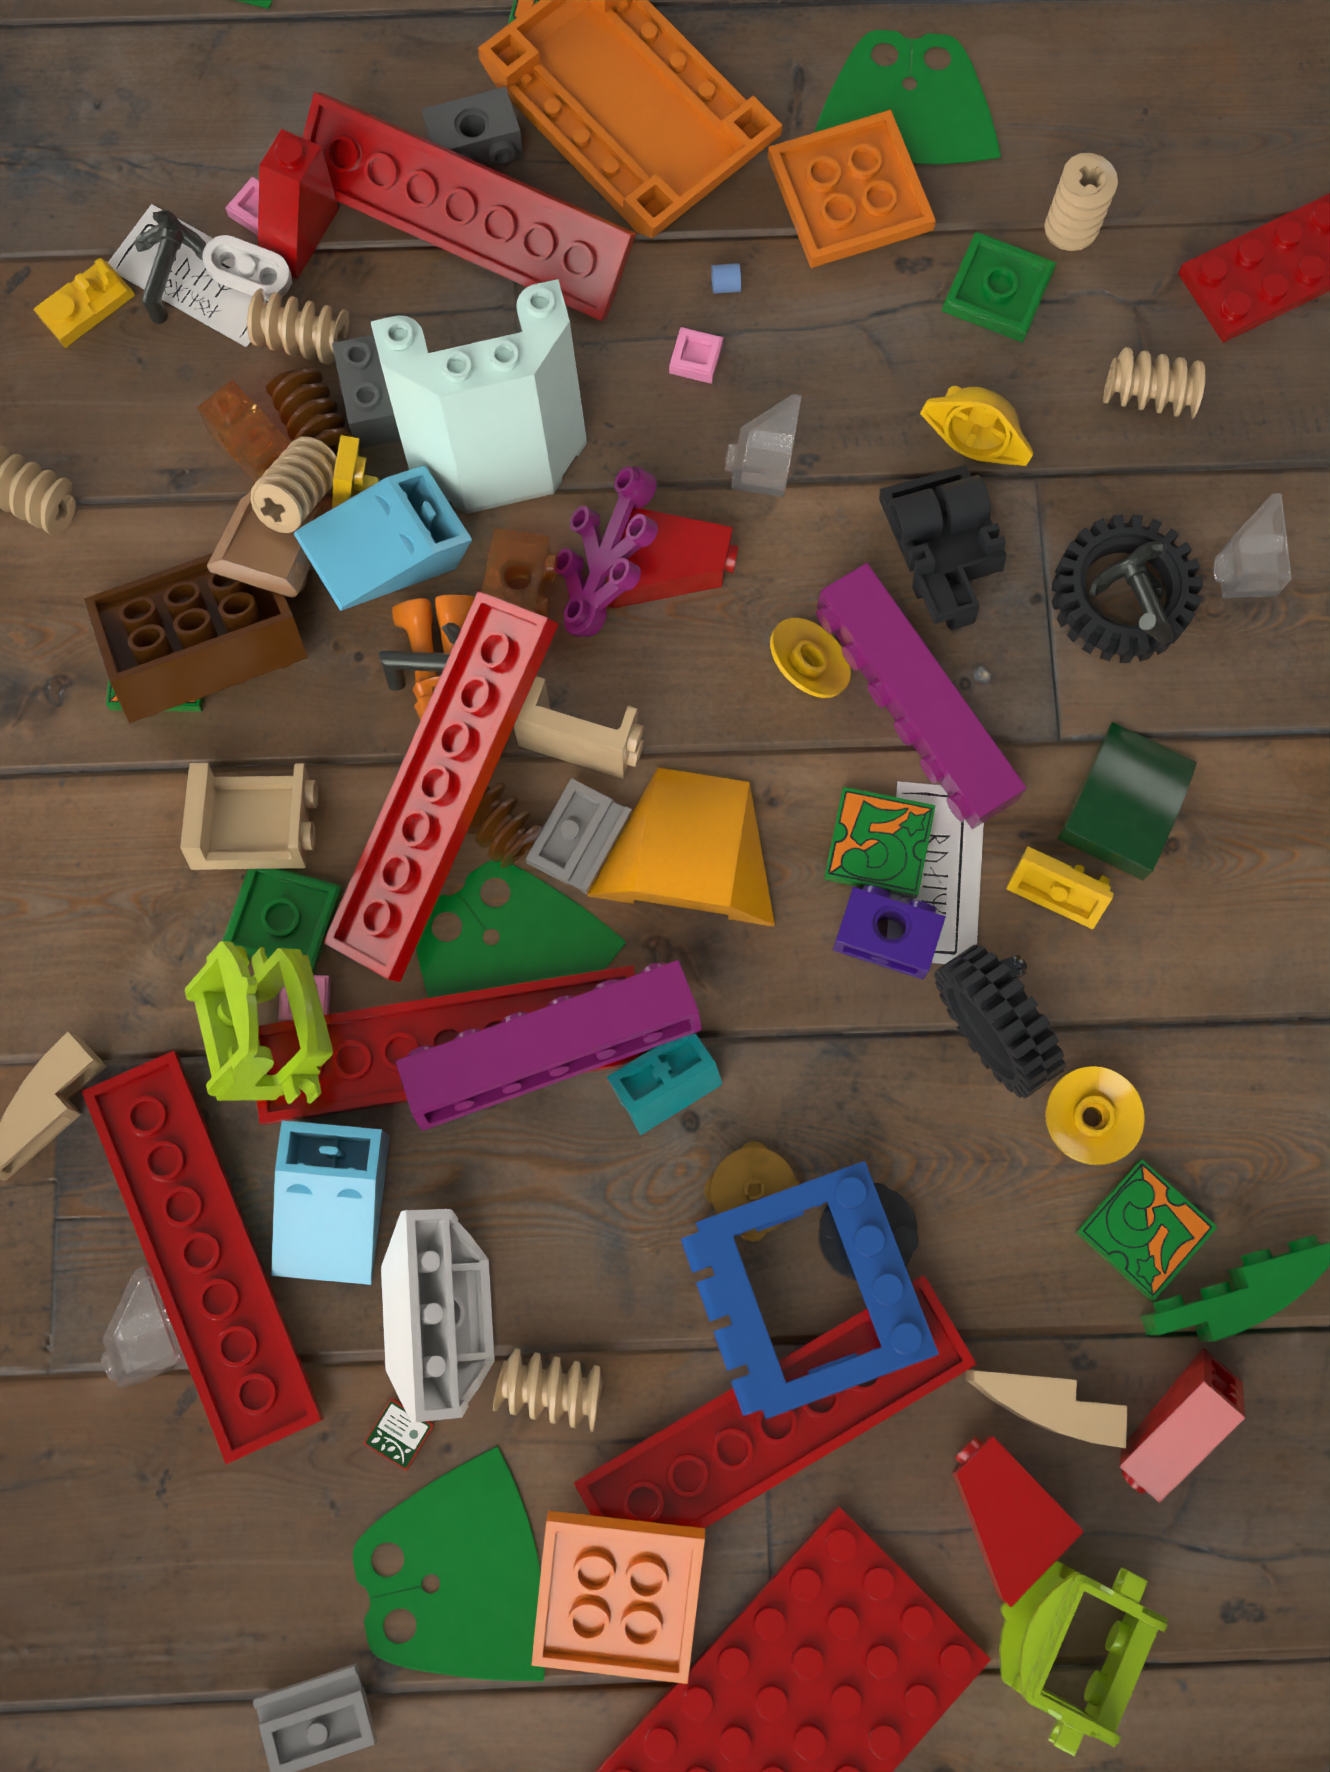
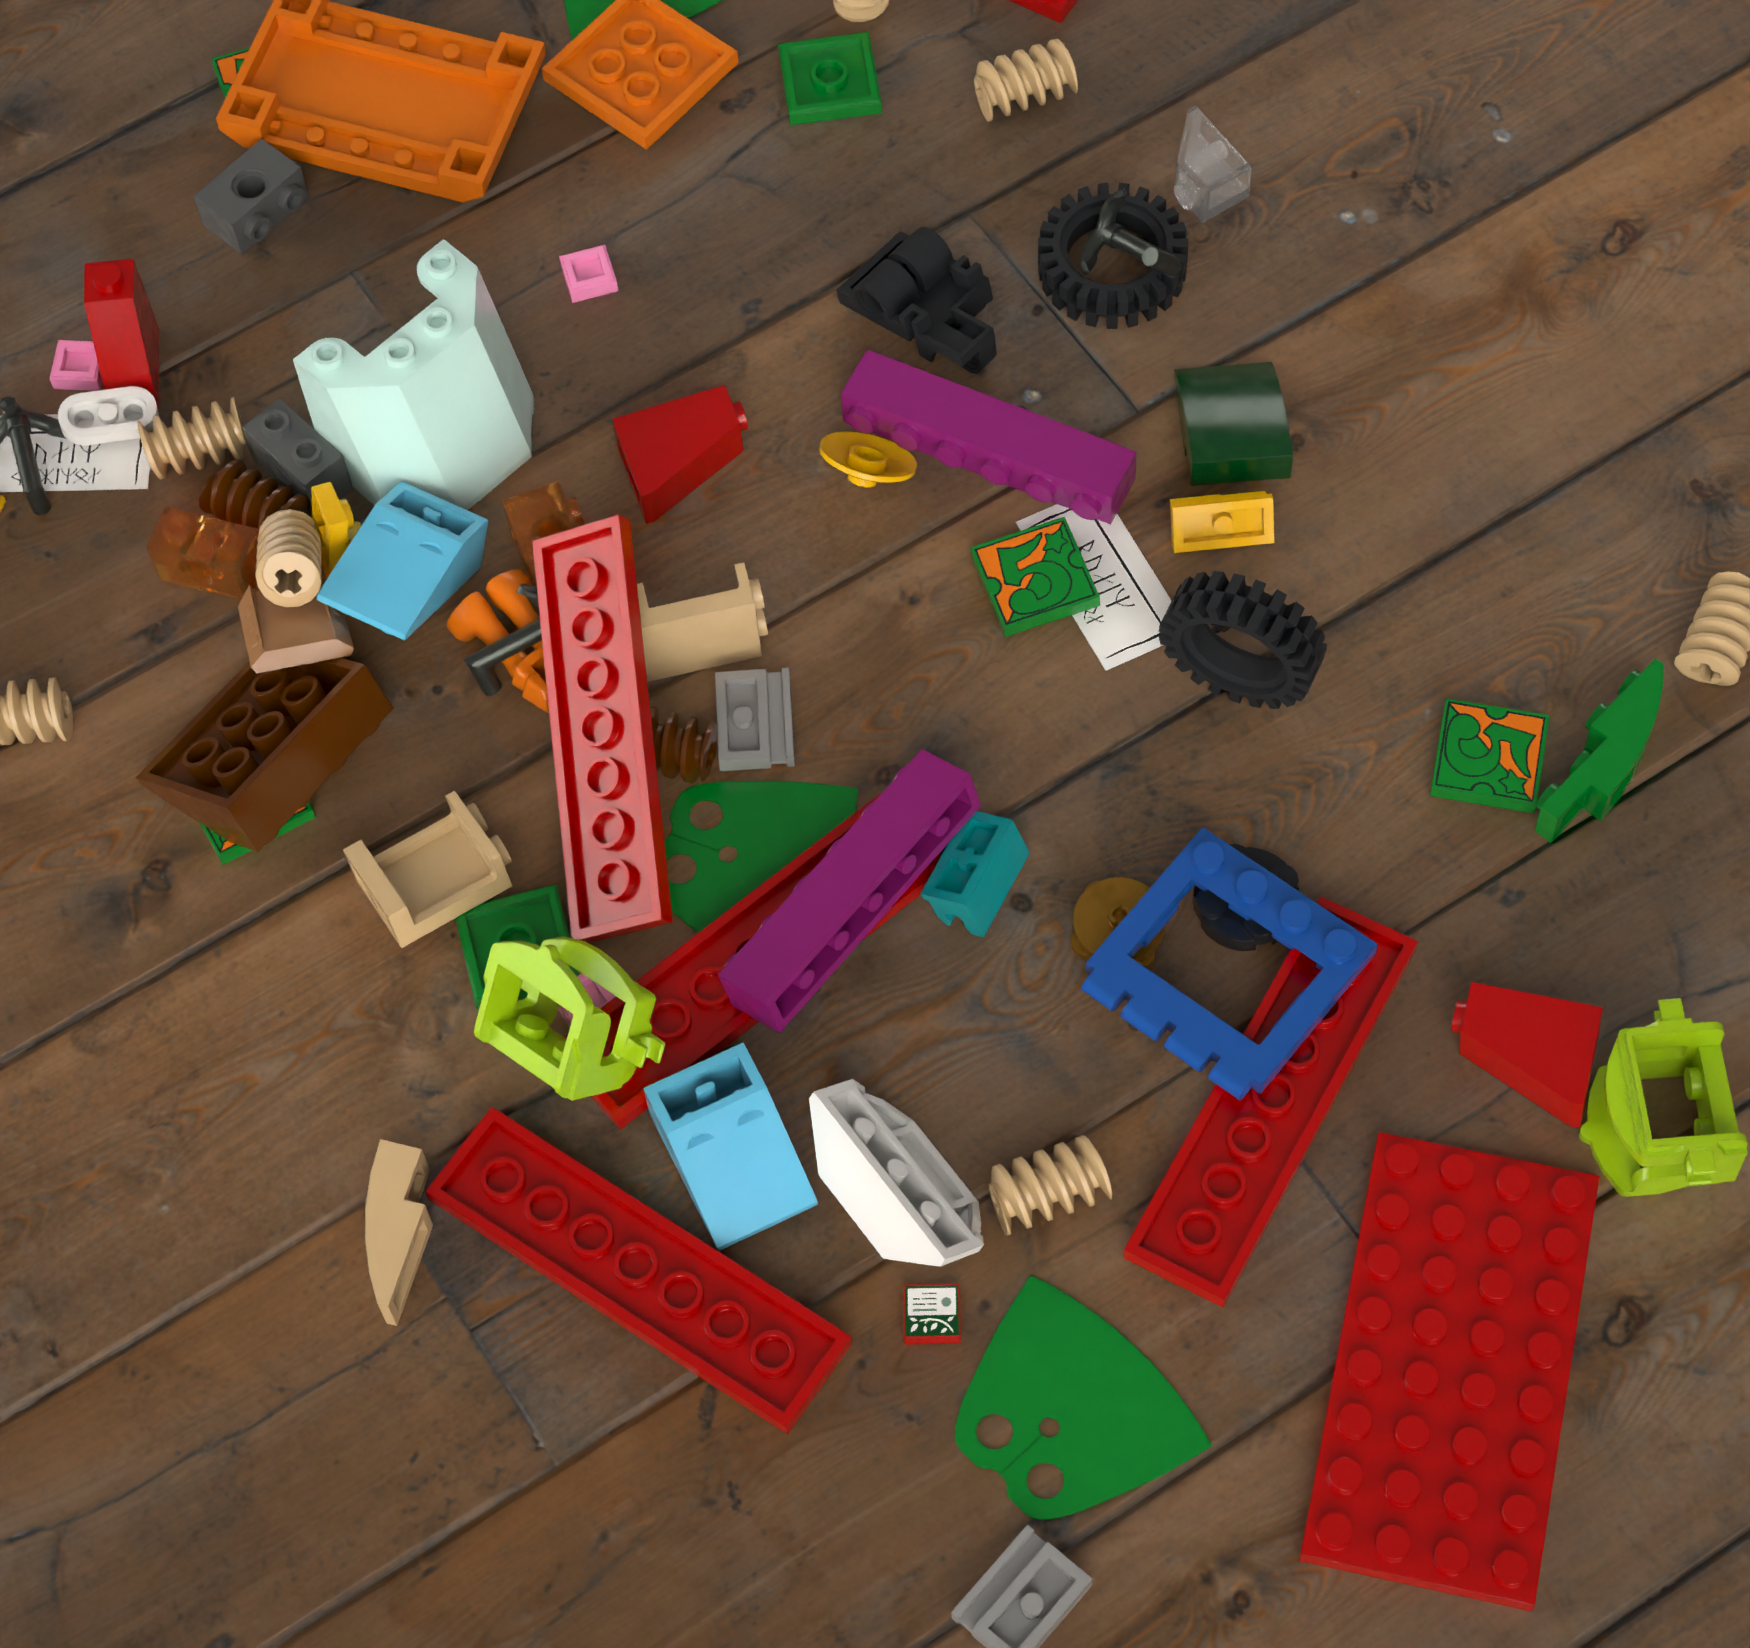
camera: 25 degrees left, 15 degrees down
(140, 1335) = (630, 1367): clear slope -> none
(468, 207) = (288, 253): red plate -> none
(586, 609) = (615, 398): magenta plant -> none
(618, 1596) = (1230, 1312): orange plate -> none
(691, 848) = (864, 673): light orange wedge -> none
(726, 278) = (574, 196): medium blue piece -> none
(765, 450) = (710, 314): clear slope -> none
(907, 954) = (1079, 660): dark purple brick -> none
(979, 425) = (891, 194): yellow hat -> none
(1054, 1406) = (1506, 938): tan slope -> none
(1118, 1111) = (1383, 667): yellow dish -> none
(1183, 1427) = (1631, 886): slope -> none

